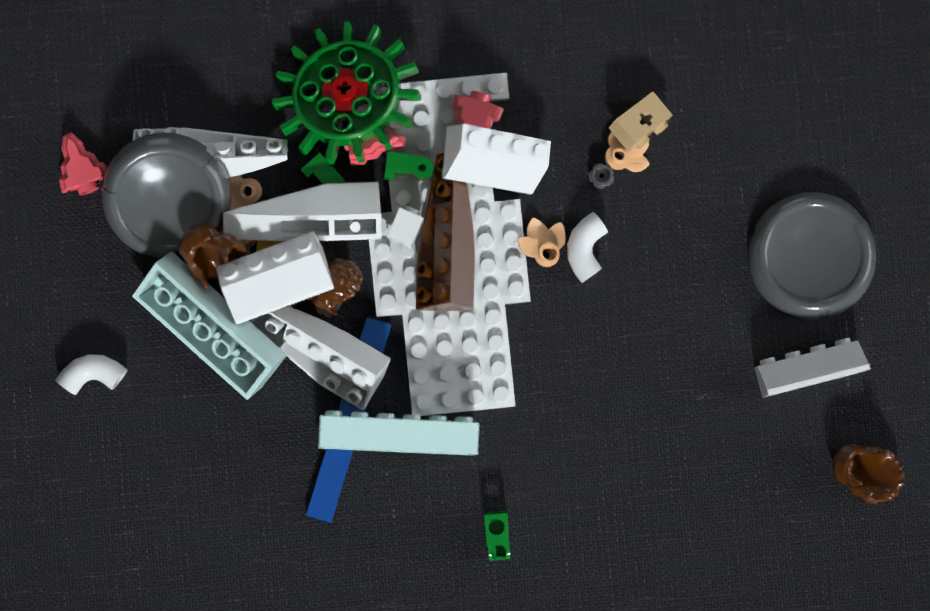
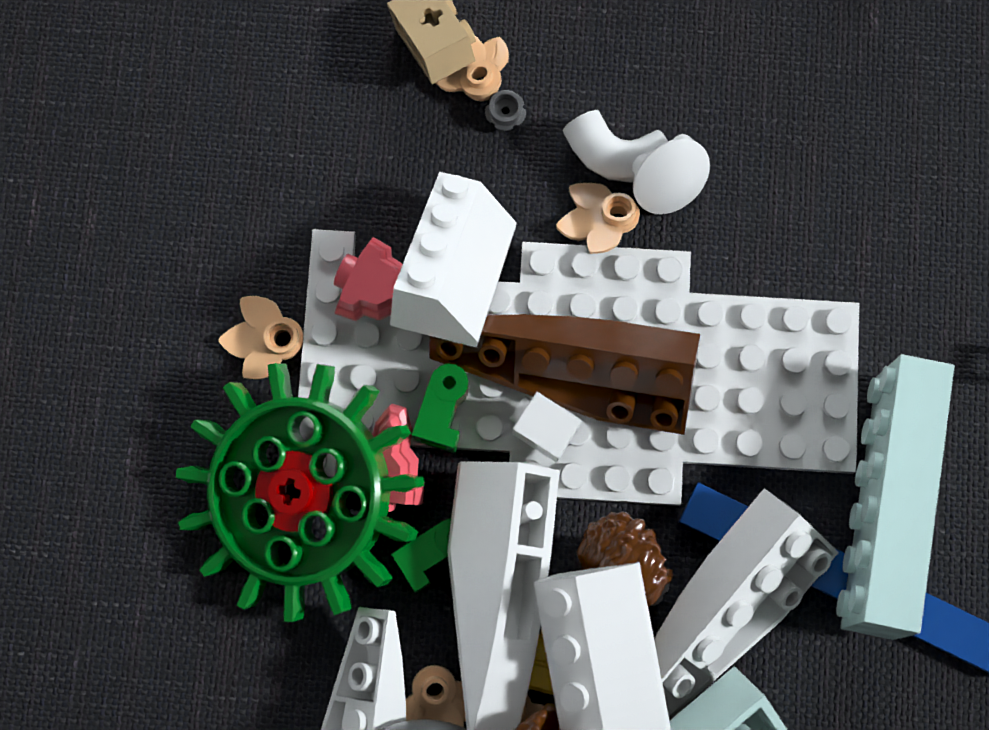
camera: 80 degrees left, 5 degrees down
(436, 52) = (257, 337): none -> light nougat plate
(573, 280) = (670, 175): none -> white dish

